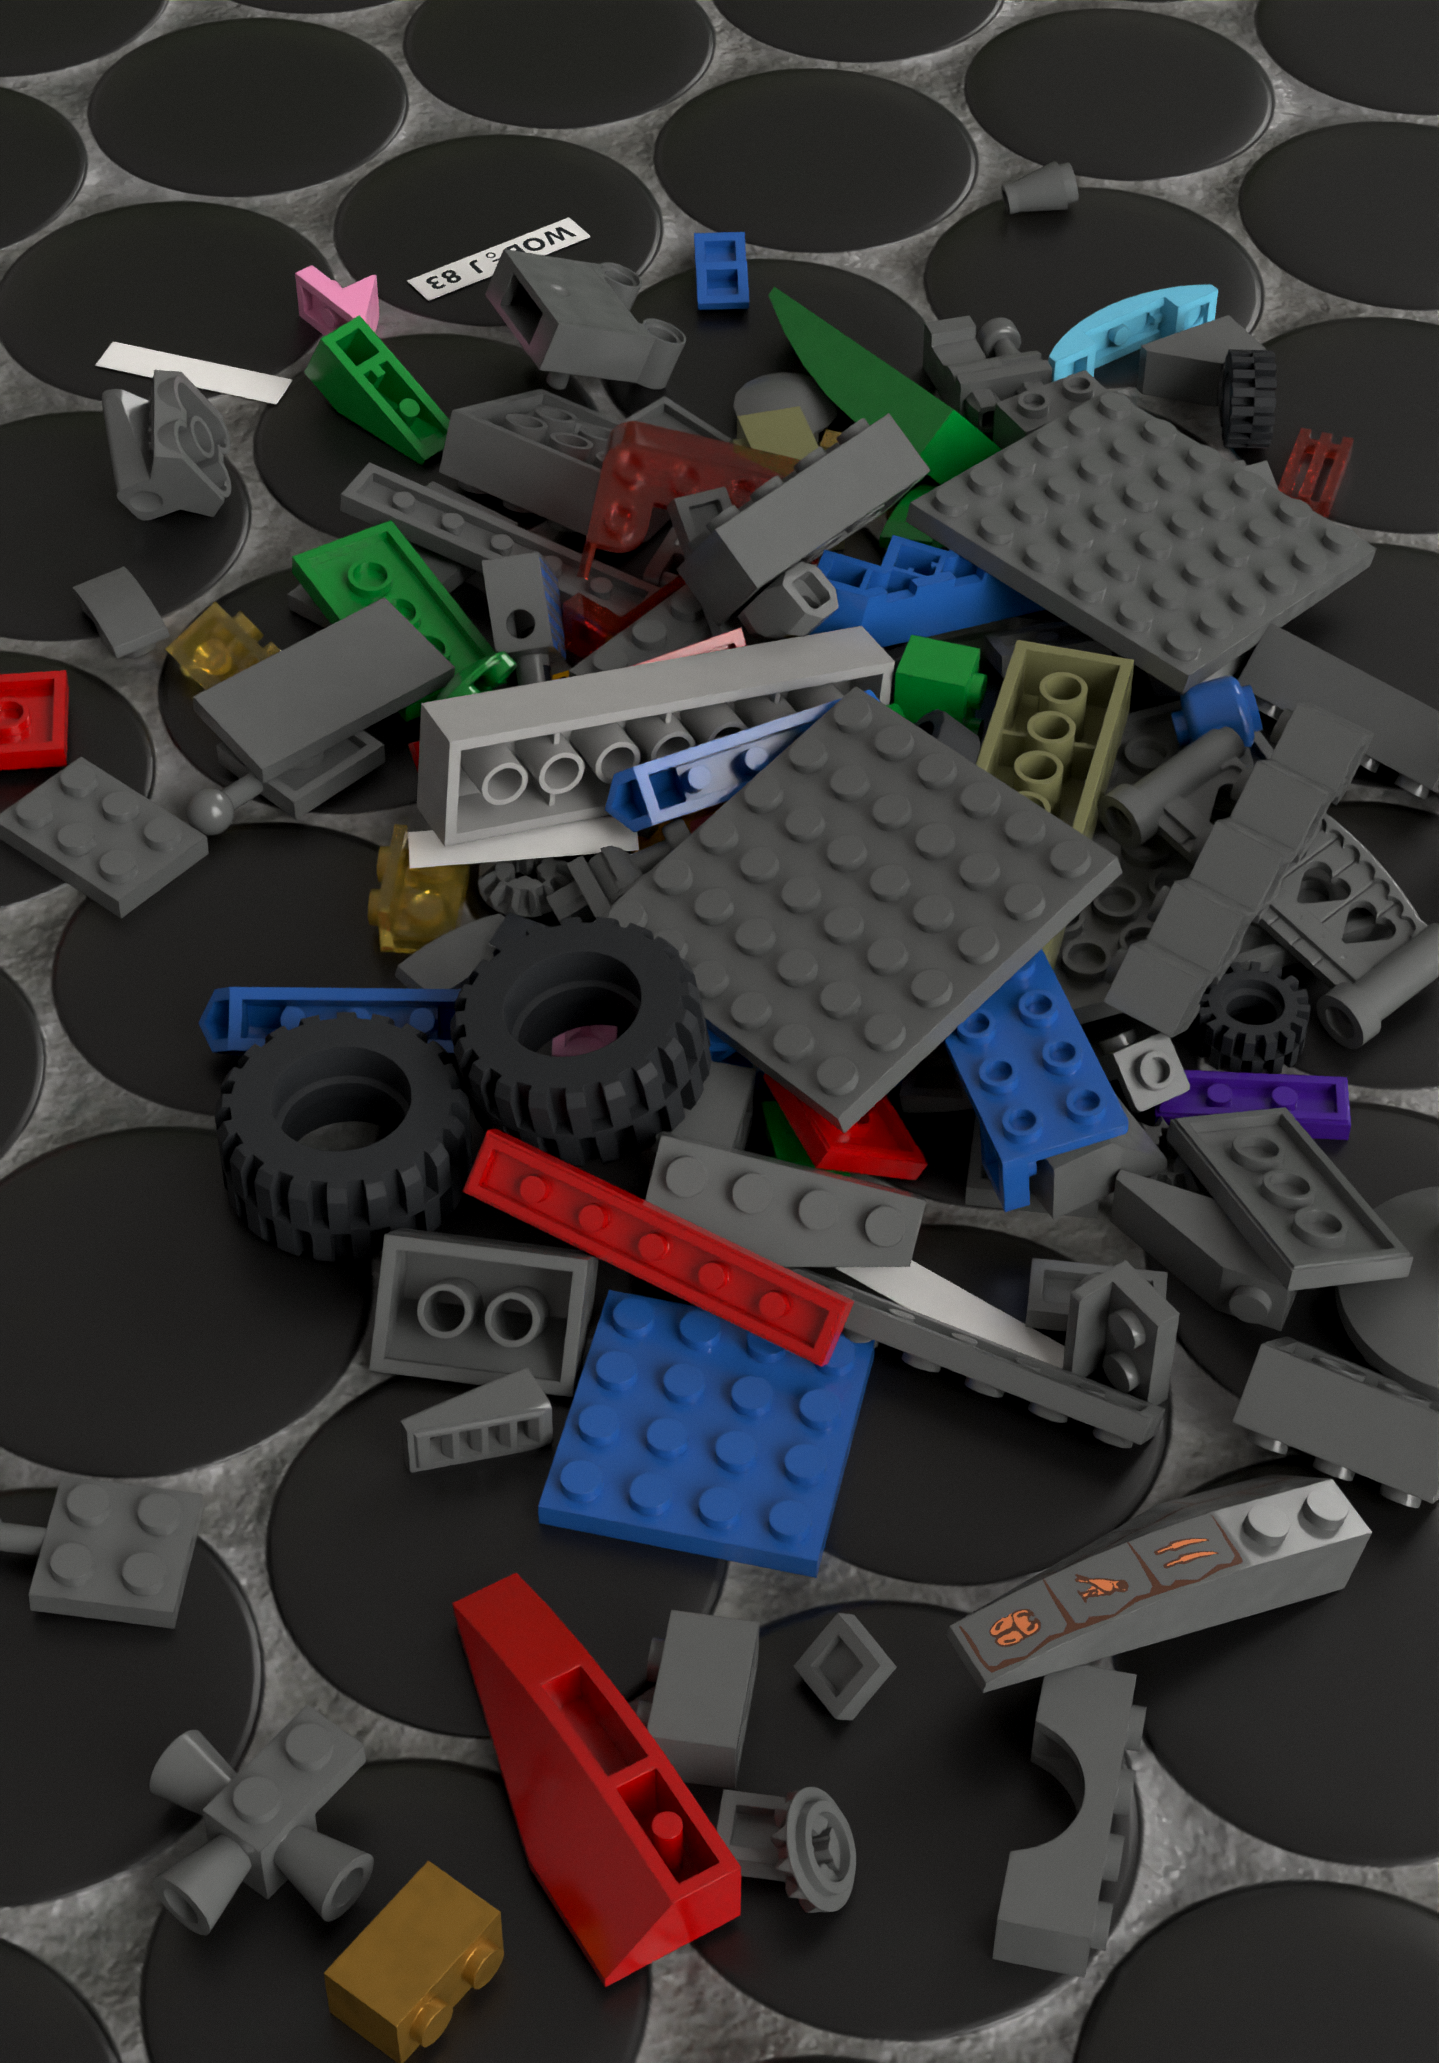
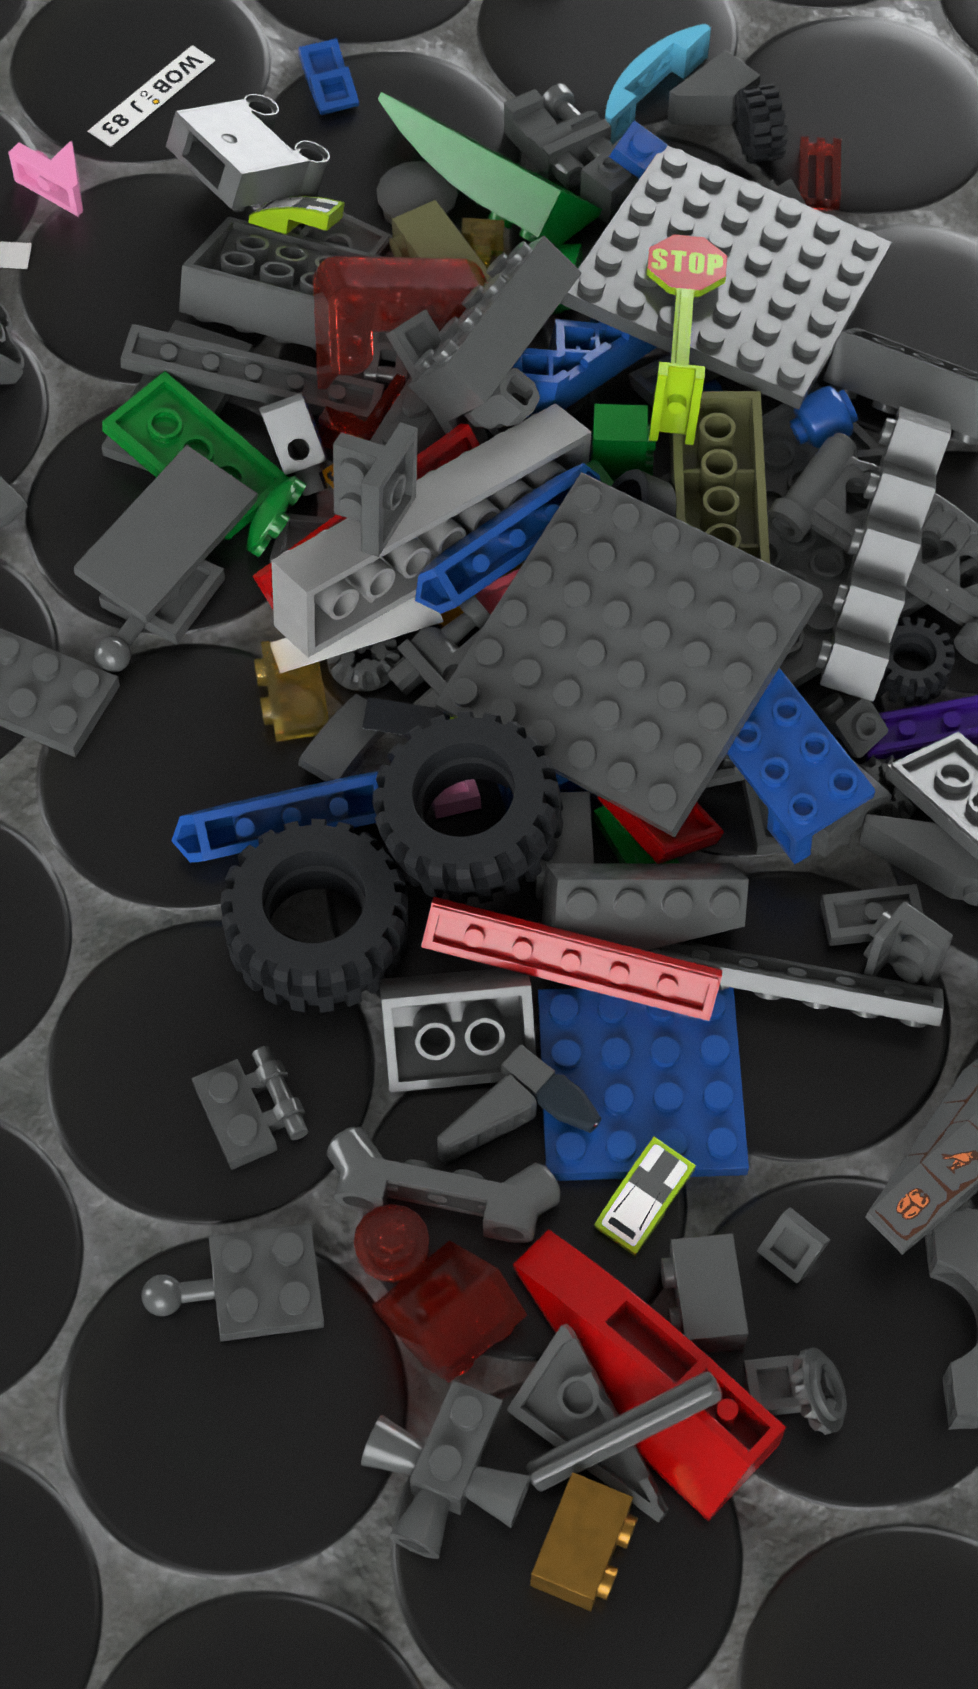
camera: 15 degrees left, 15 degrees up
(158, 1352) = (235, 1113): none -> dark grey plate
(219, 646) = (74, 514): clear yellow bracket -> none
(299, 1540) = (391, 1243): none -> clear red plate
(348, 1639) = (451, 1310): none -> clear red slope
(377, 391) = (110, 249): green slope -> none
(462, 1530) = (507, 1207): none -> dark grey plate
(467, 1802) = (568, 1399): none -> dark grey wing
(518, 1821) = (624, 1431): none -> dark grey axle
(576, 1403) = (553, 1091): none -> black piece
(581, 636) = (375, 483): none -> dark grey bracket
(625, 396) = (289, 212): none -> lime slope
(657, 1558) = (644, 1196): none -> slope
(944, 1301) = (784, 943): white sticker -> none
(1011, 608) = (688, 270): none -> lime piece
(1069, 385) = (637, 149): none -> blue plate

